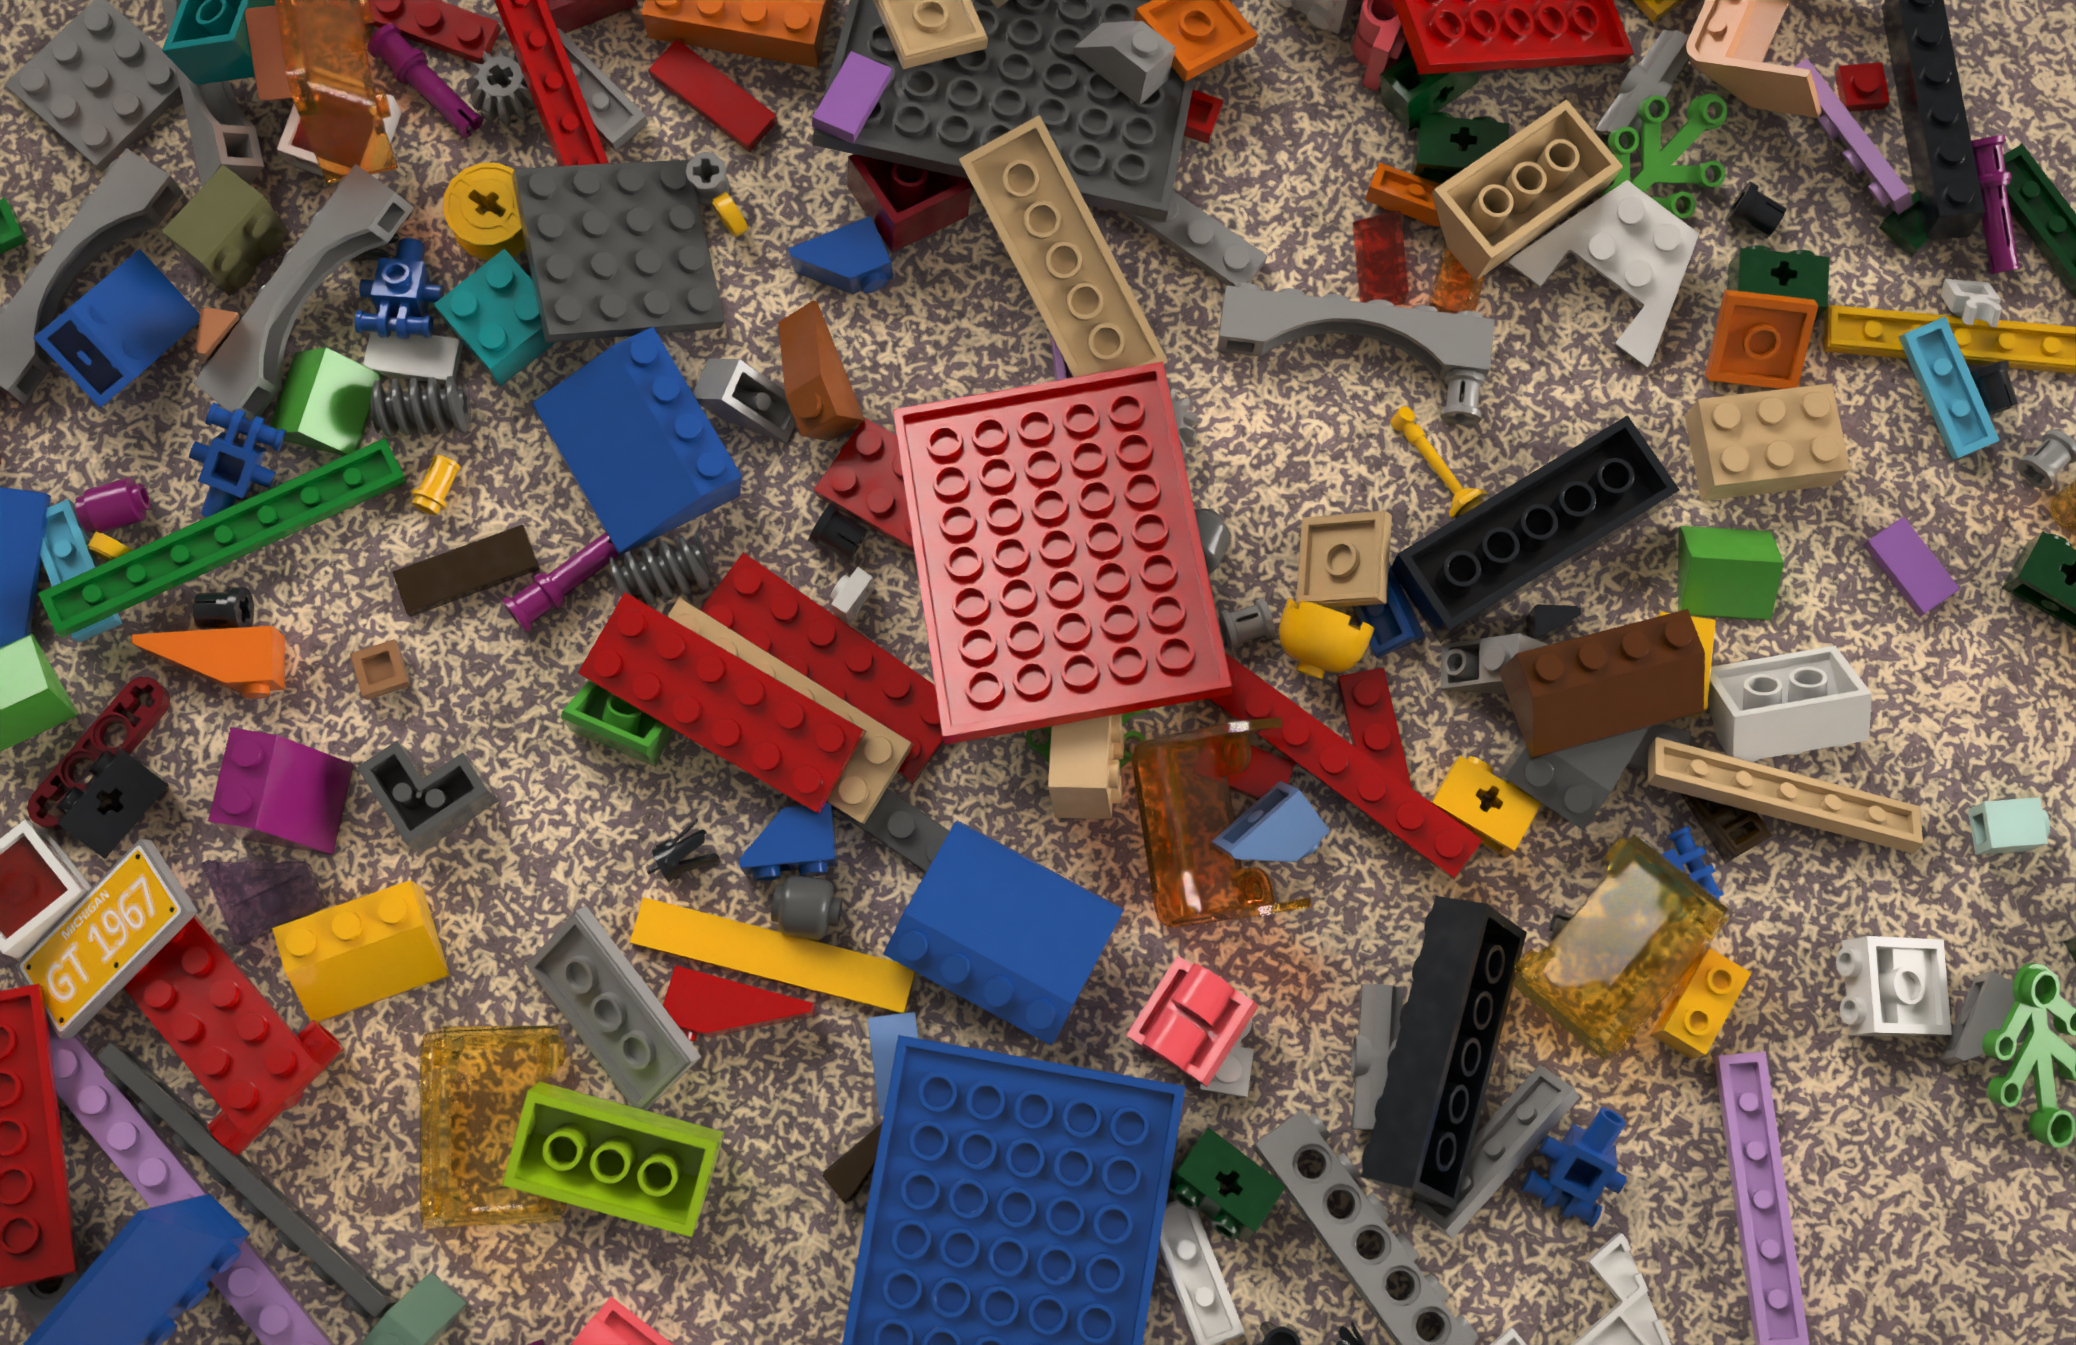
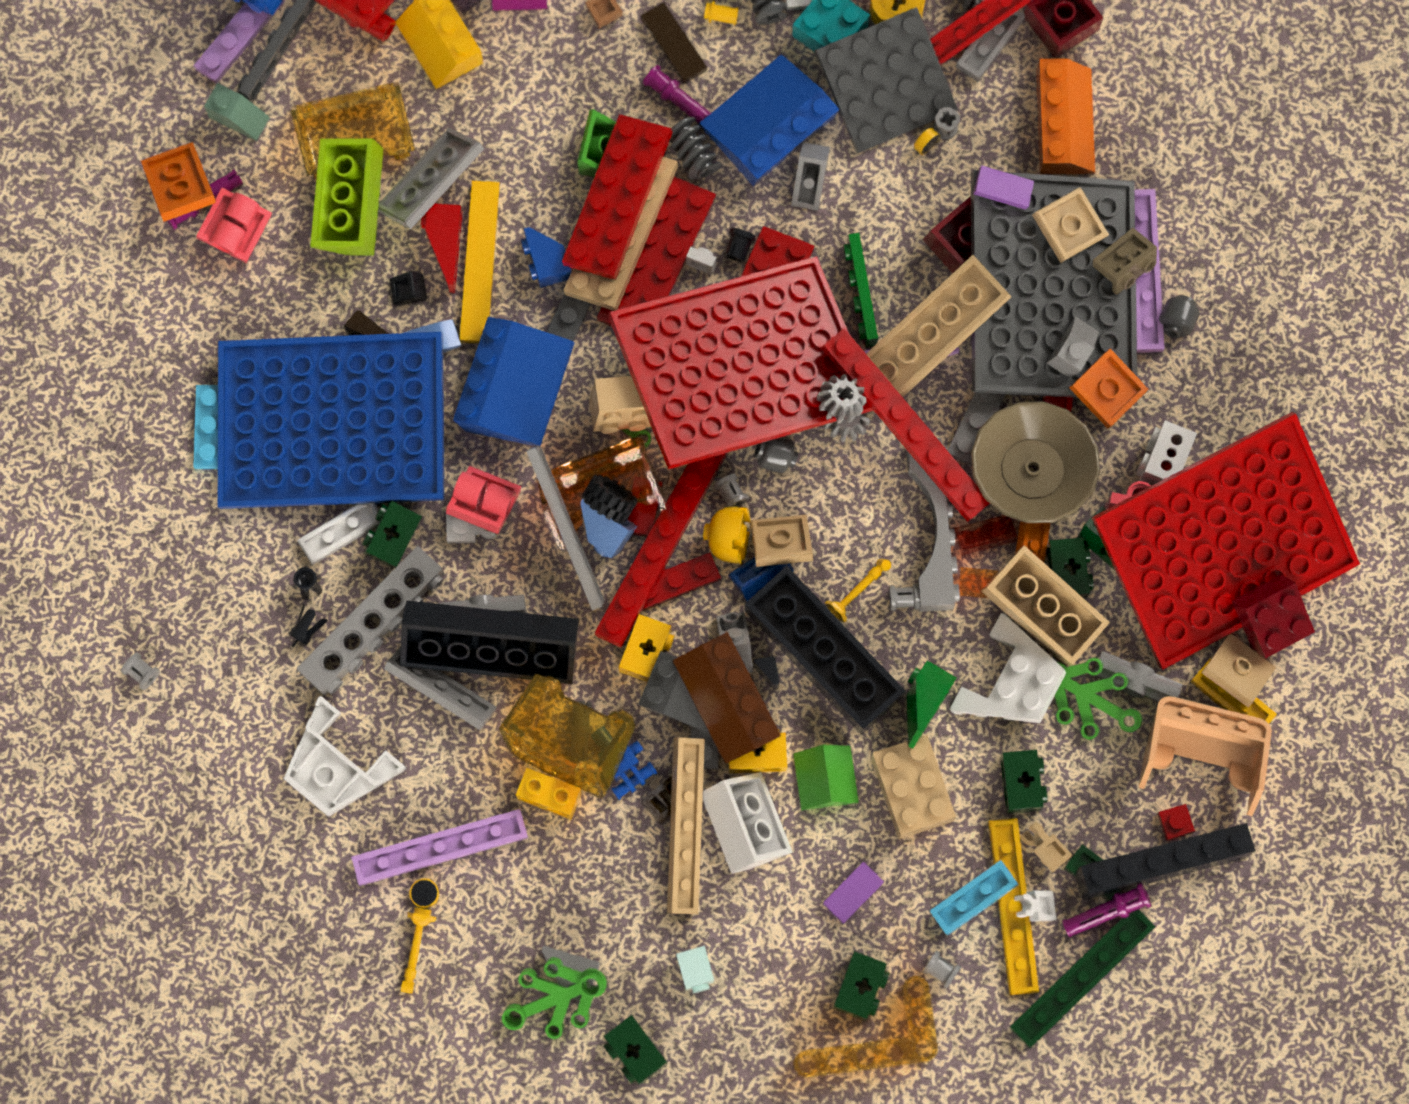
camera: 80 degrees right, 0 degrees up
(423, 805) = (528, 48): dark grey brick -> none
(669, 855) = (523, 192): black piece -> none
(713, 95) = (1005, 115): red tile -> none
(793, 1085) = (408, 288): none -> black slope
(805, 907) = (509, 271): dark grey head -> none
(816, 377) = (831, 210): dark orange slope -> none
(845, 258) = (914, 215): blue slope -> none
(972, 361) = (862, 301): none -> green plate
(1153, 406) = (841, 409): none -> light grey gear
(1199, 329) = (906, 425): none -> red plate
(1238, 810) = (609, 498): none -> black tyre
(1271, 890) = (566, 527): none -> light grey tile
(1300, 120) = (1038, 437): none -> dark tan dish
(1580, 1168) = (438, 736): blue piece -> none
(1627, 384) = (925, 697): none -> green slope
(1756, 211) = (1070, 762): black bush -> none
(1761, 339) = (979, 772): orange plate -> none
(1830, 1239) = (424, 893): none -> black tile
(1860, 152) = (1137, 809): lavender plate -> none
(1873, 1251) = (420, 918): none -> yellow piece
(1886, 266) = (1049, 849): none -> tan plate
(1894, 986) = (581, 910): white plate -> none
(1995, 387) = (982, 928): black bush -> none

